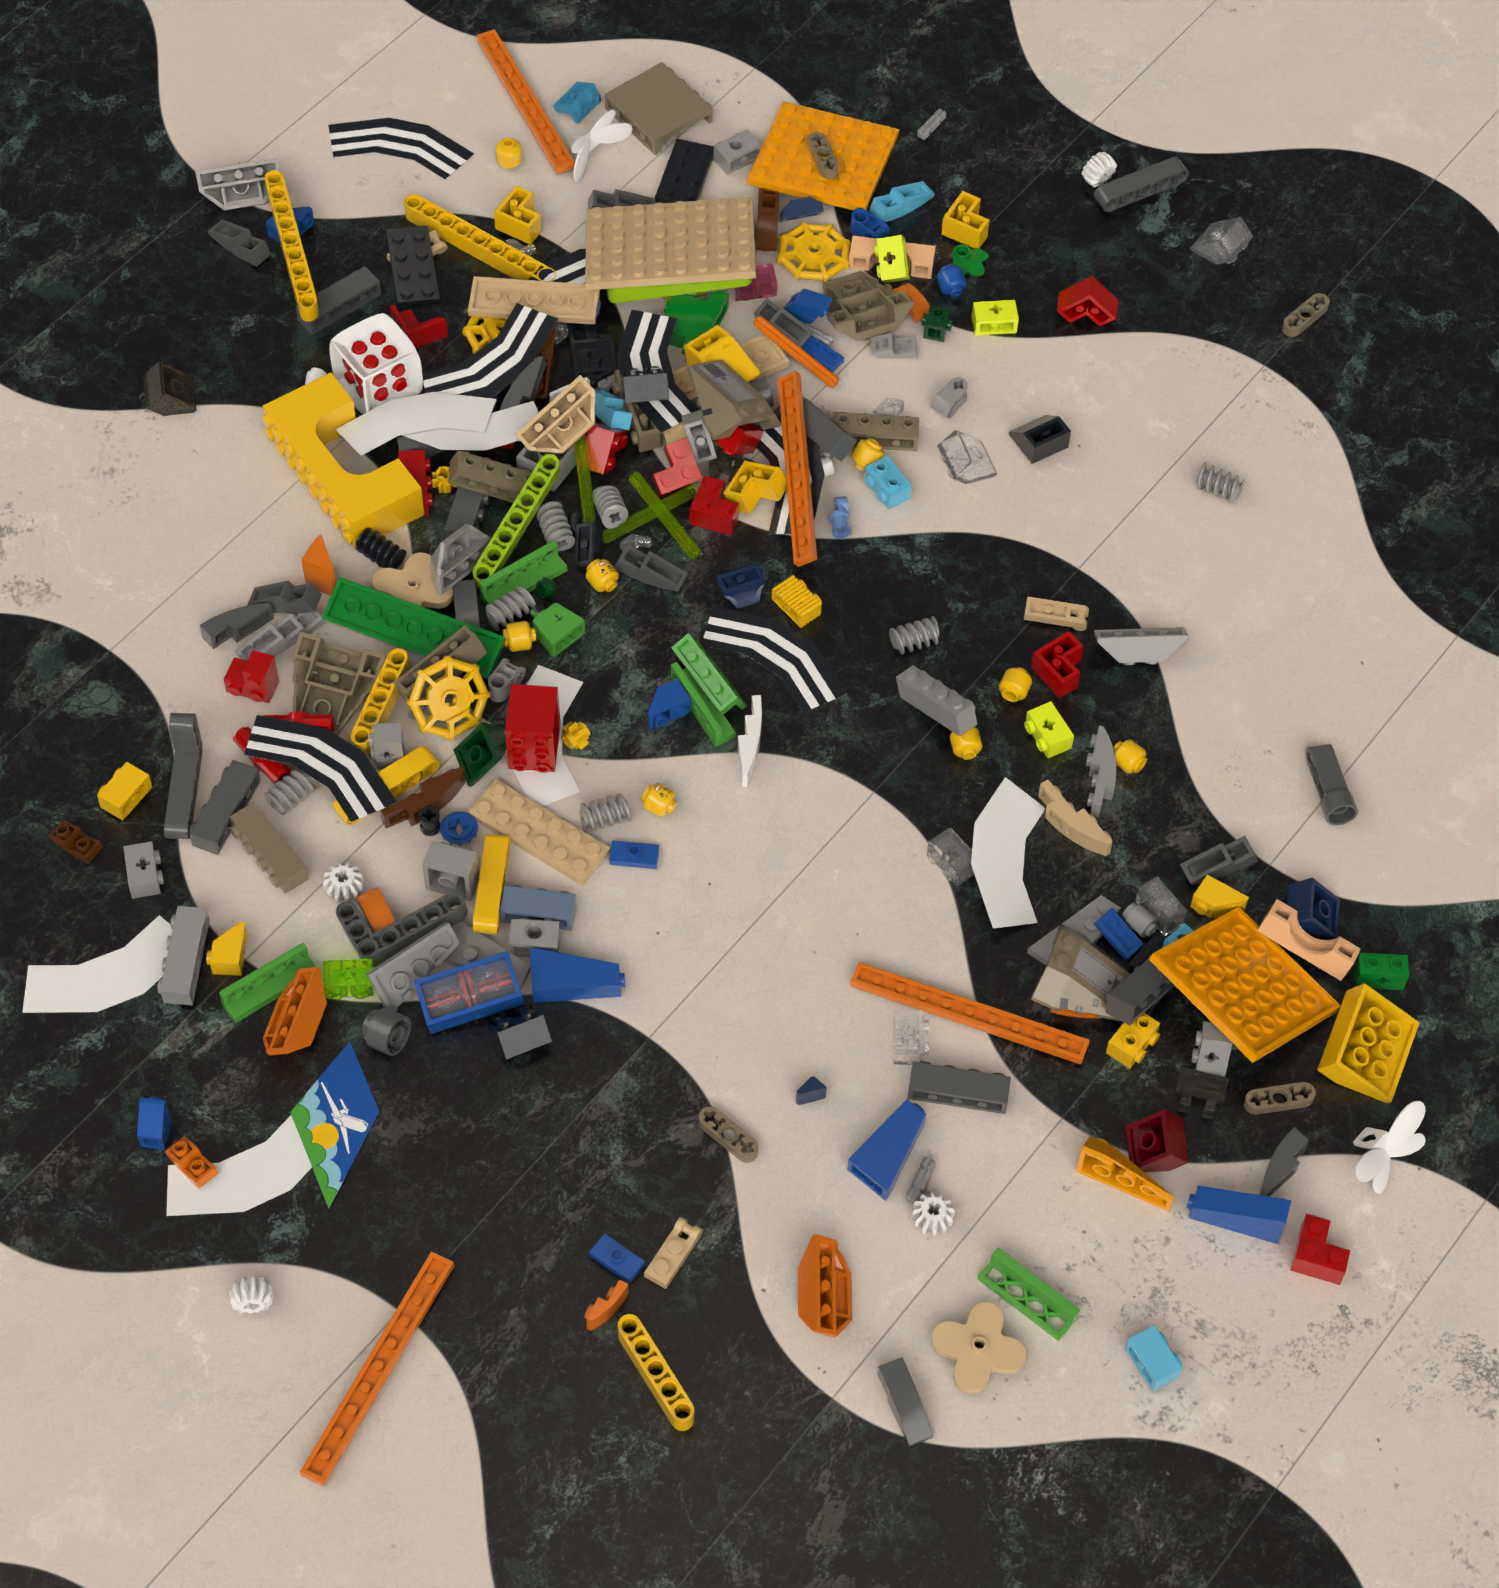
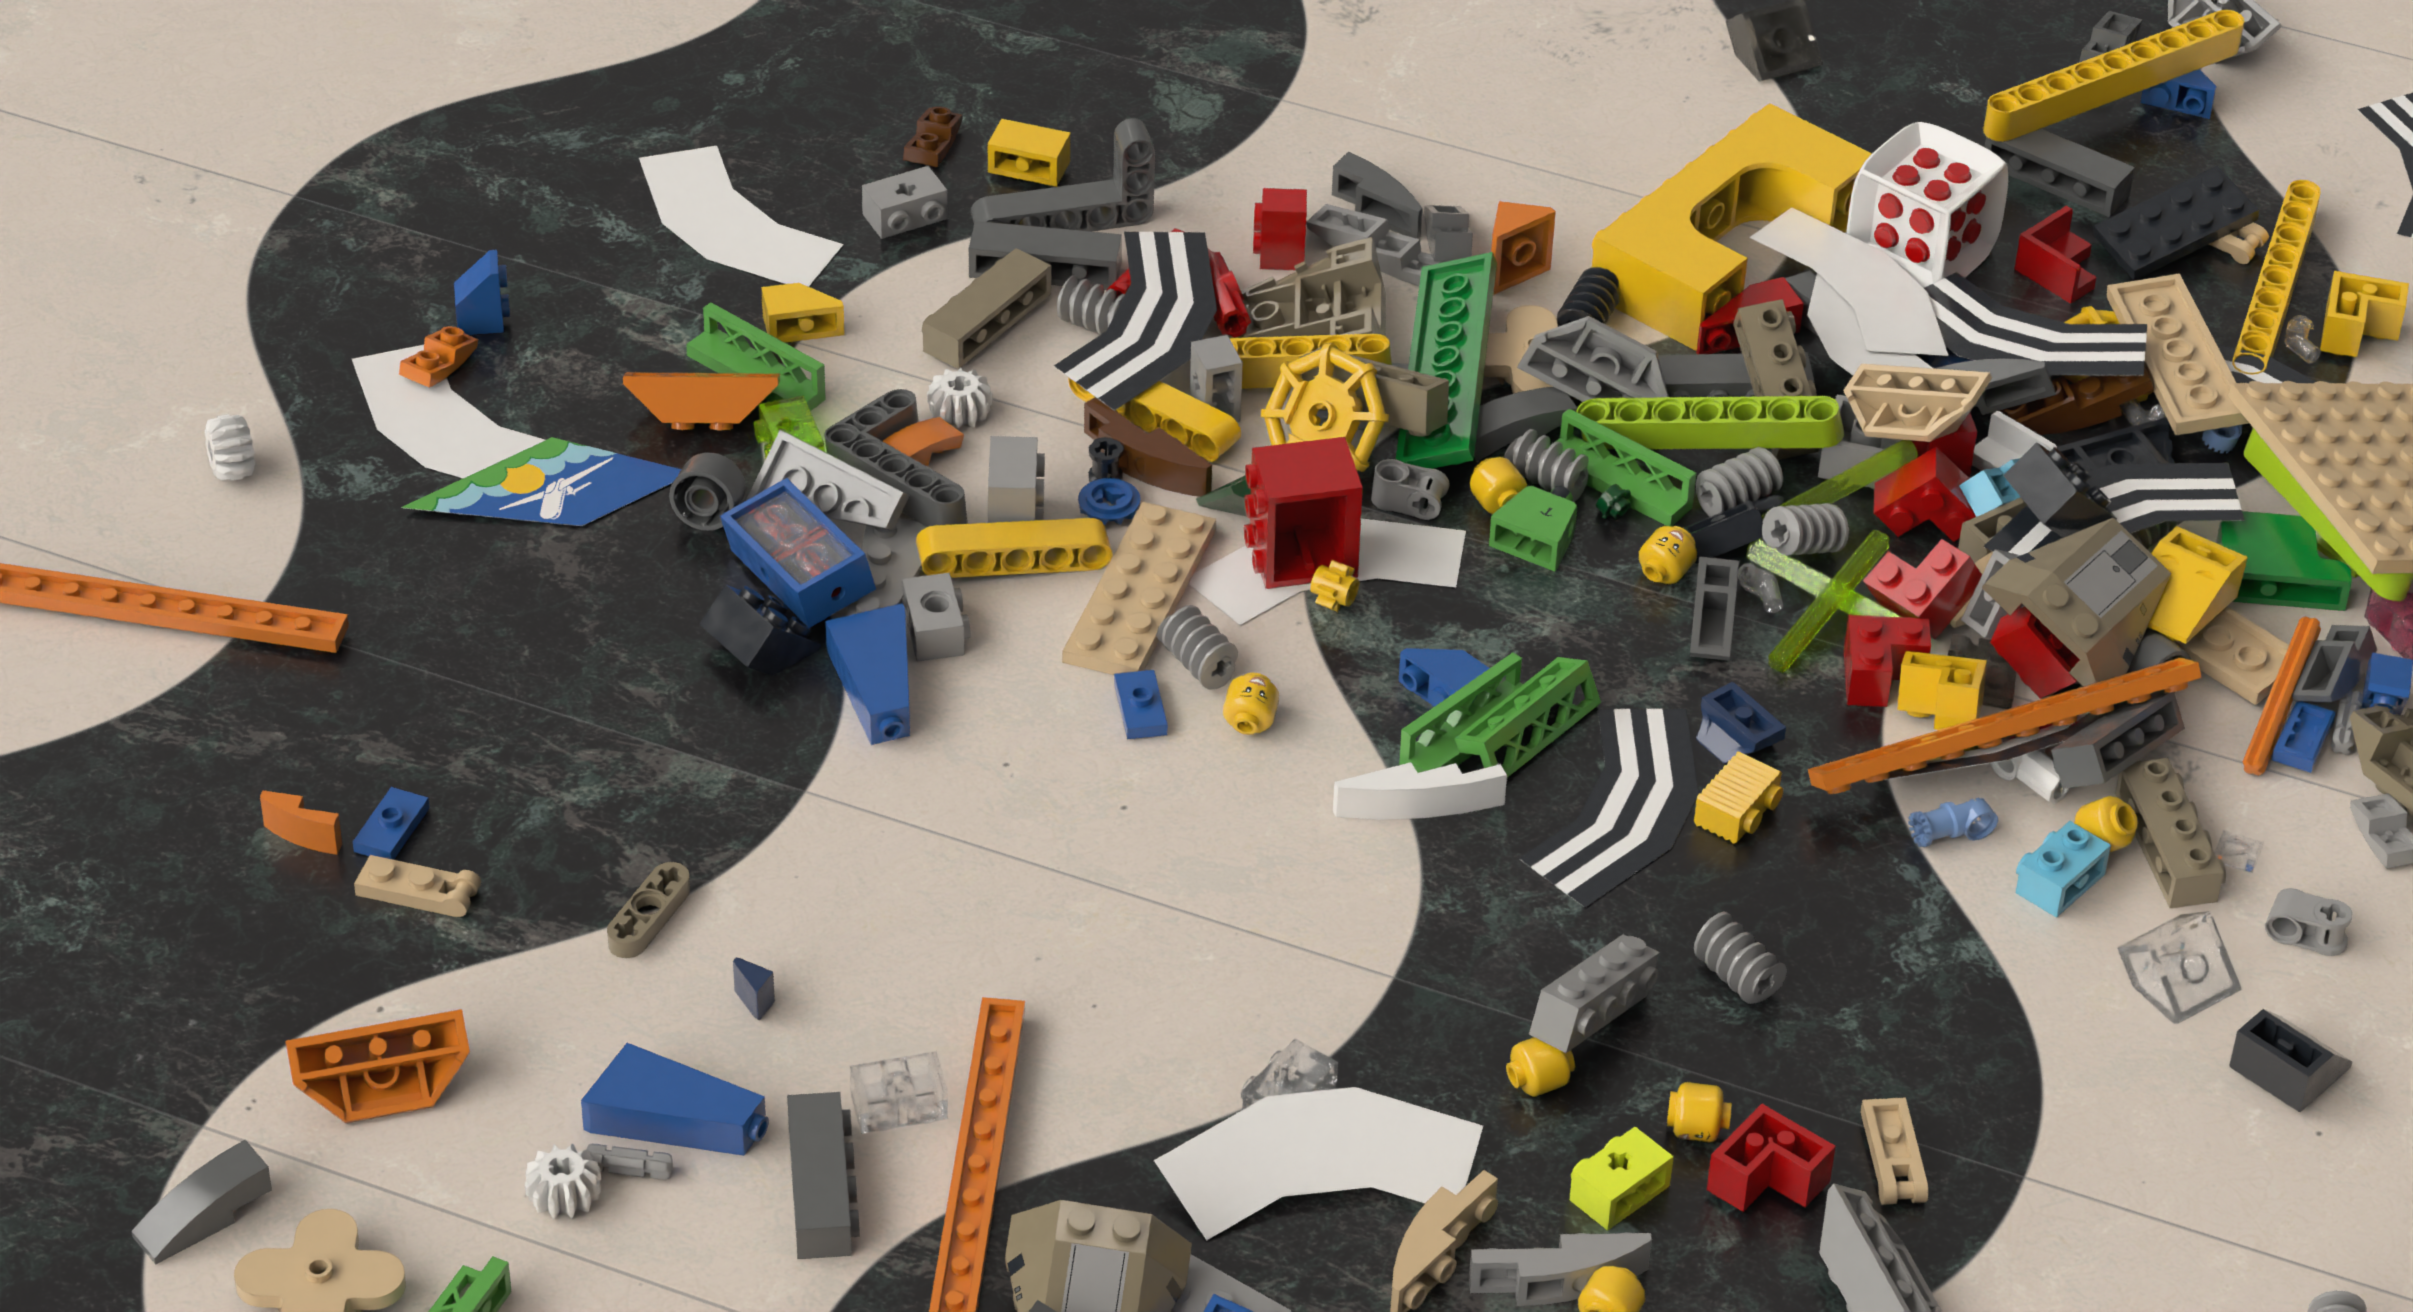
camera: 75 degrees right, 15 degrees down
(184, 955) = (743, 268): light grey brick -> none
(538, 905) = (993, 609): sand blue brick -> none
(659, 1383) = (196, 898): yellow beam -> none

